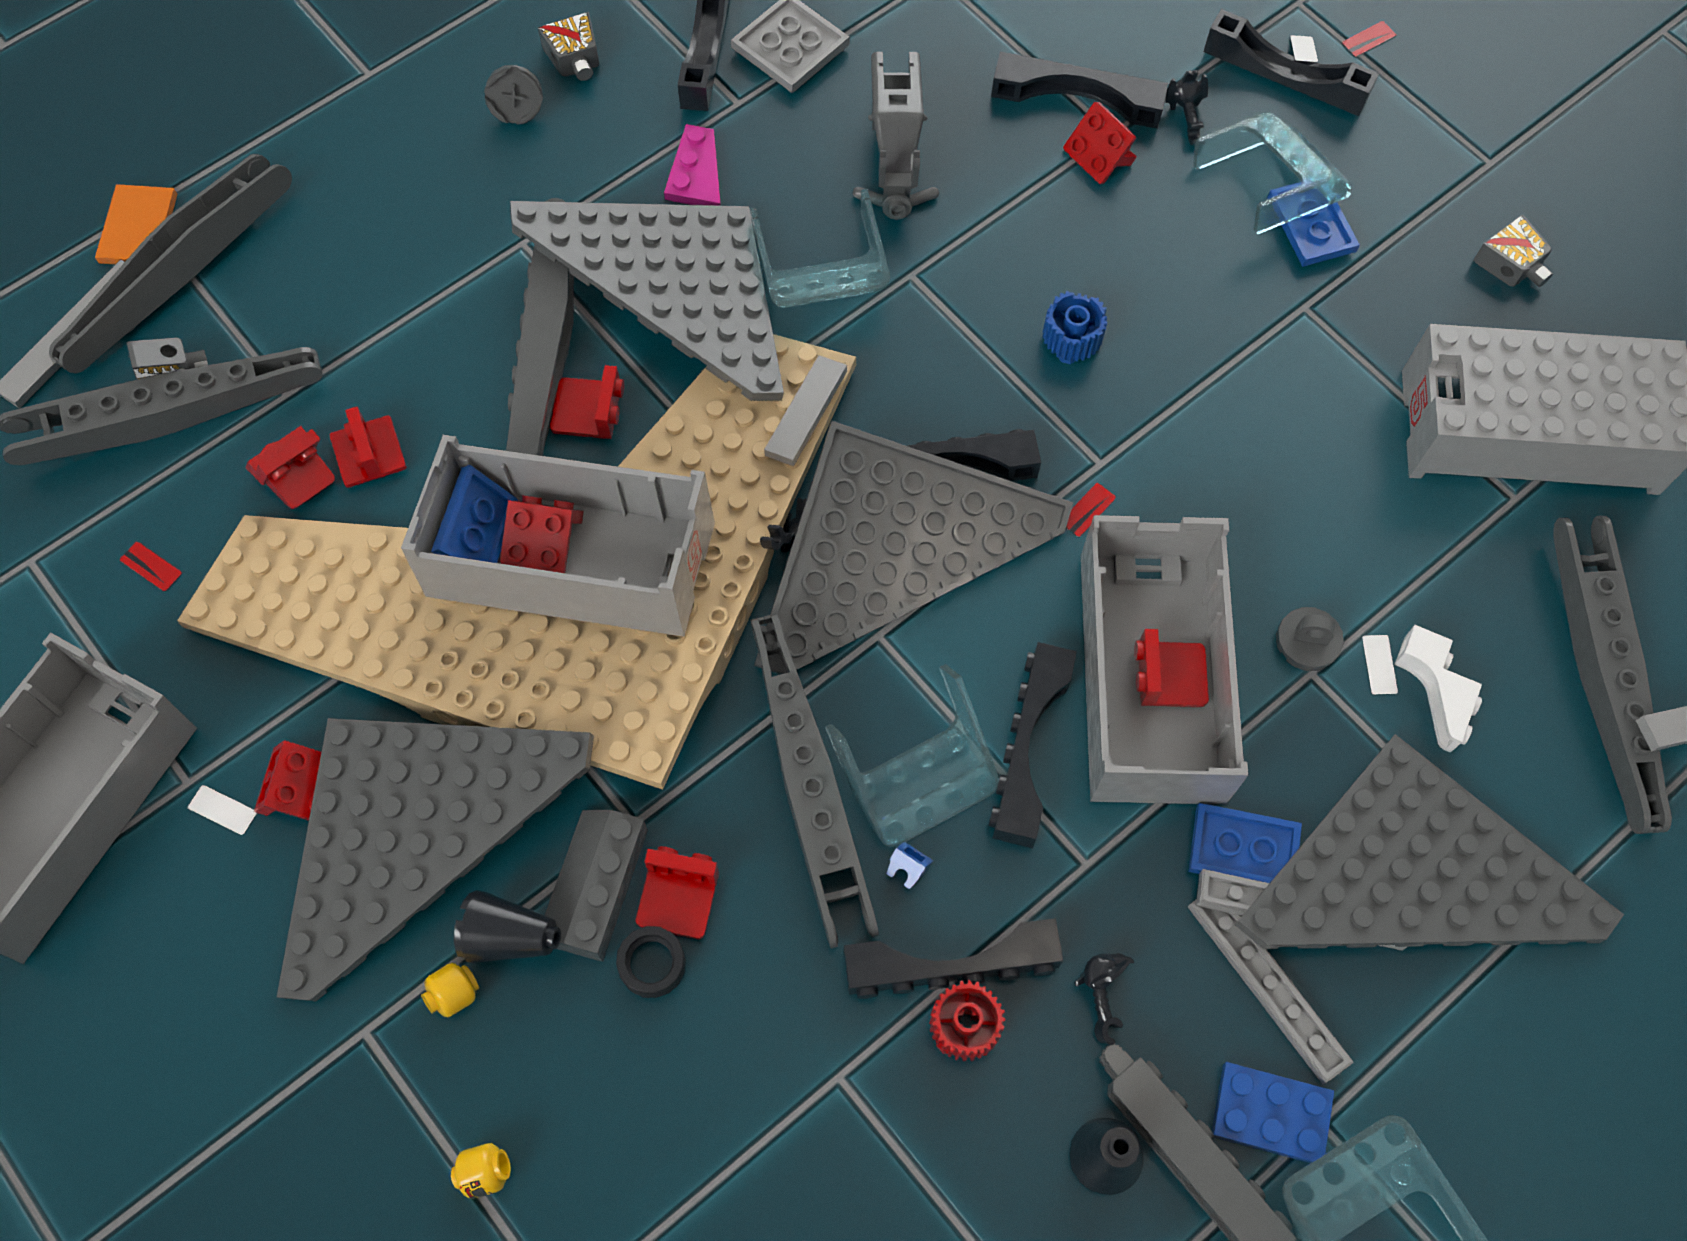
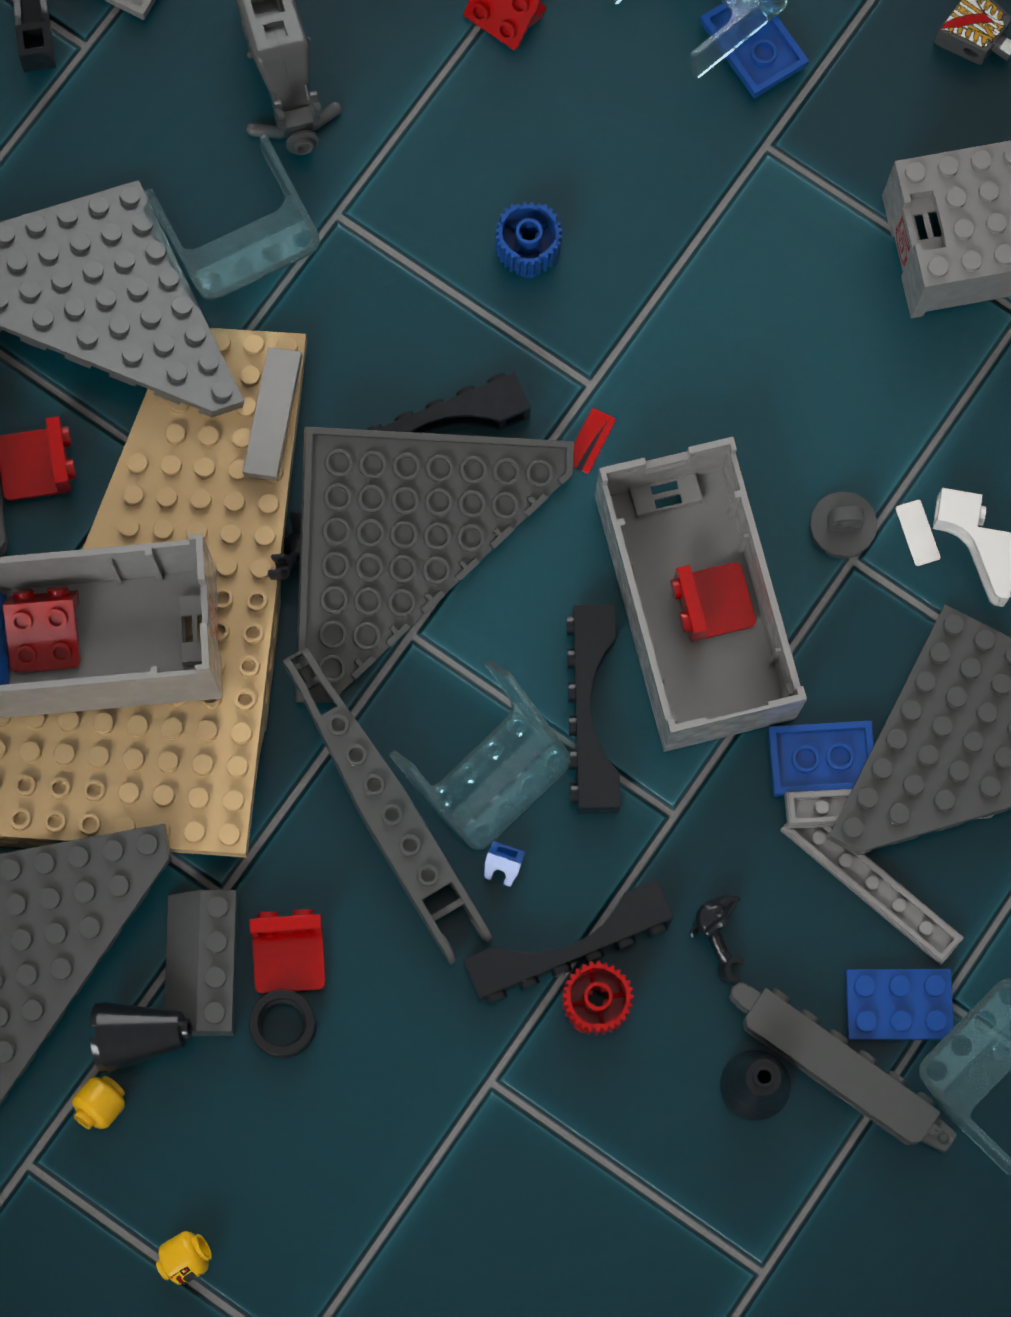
camera: 20 degrees left, 10 degrees up
(694, 170) = (64, 147): dark pink wing -> none

